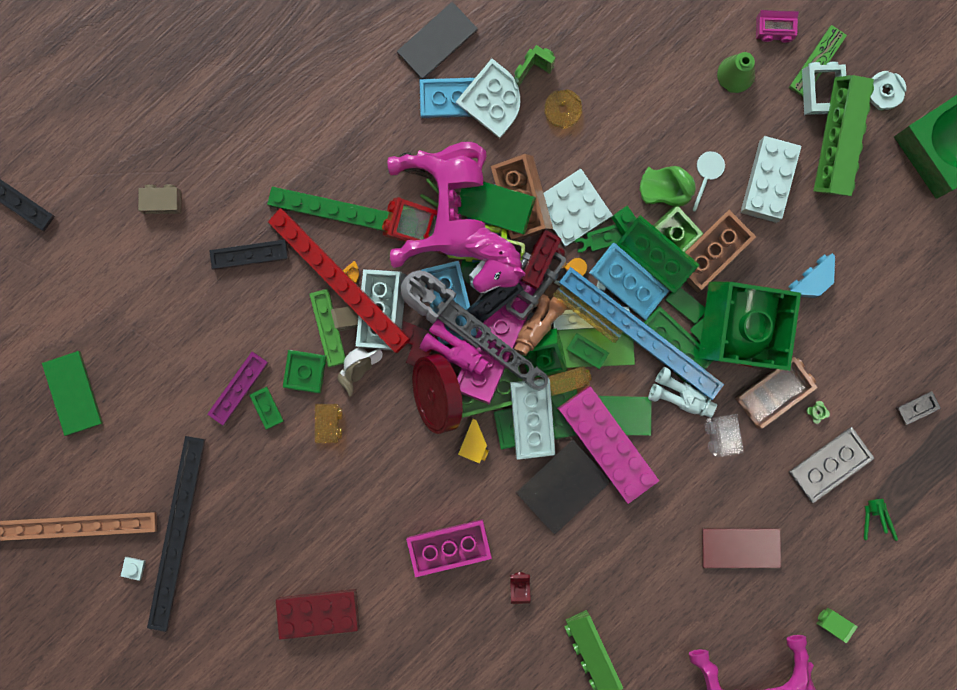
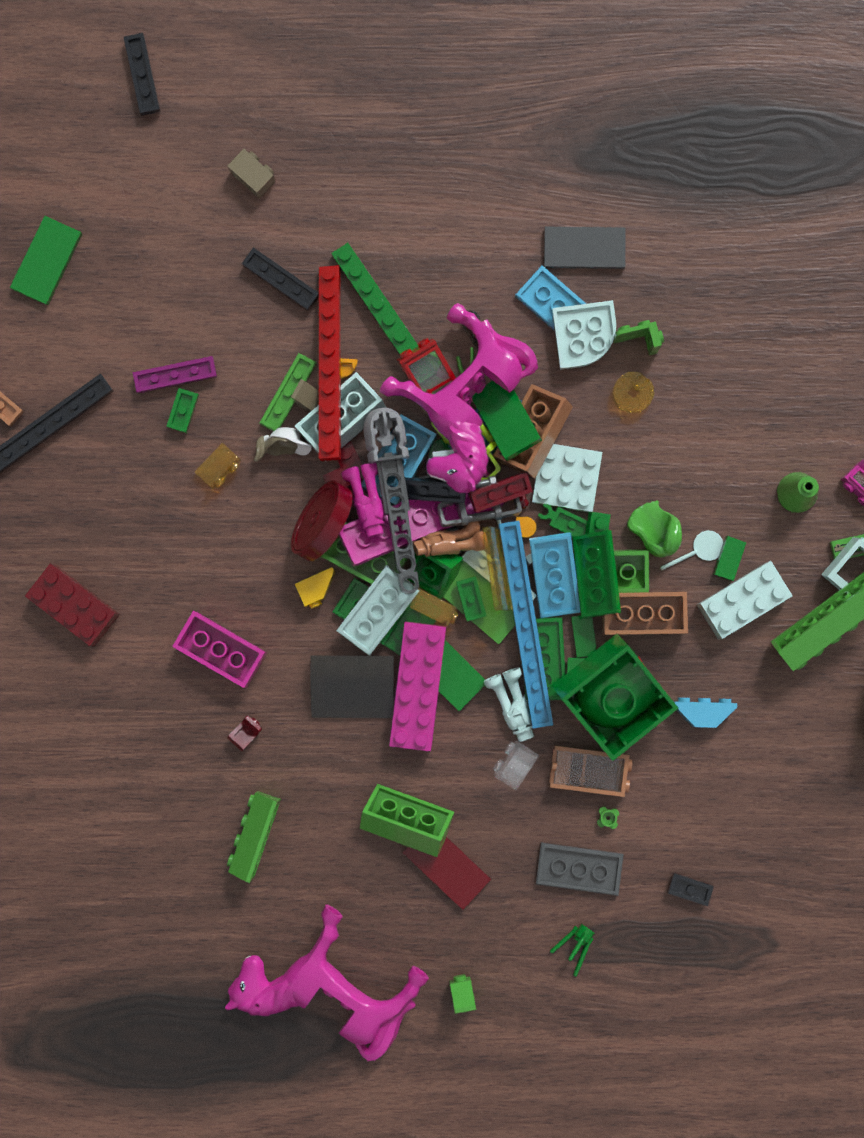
camera: 45 degrees right, 0 degrees up
(304, 371) = (238, 409): green tile -> none
(686, 543) = (406, 820): none -> bright green slope
(733, 160) = (729, 558): none -> green tile

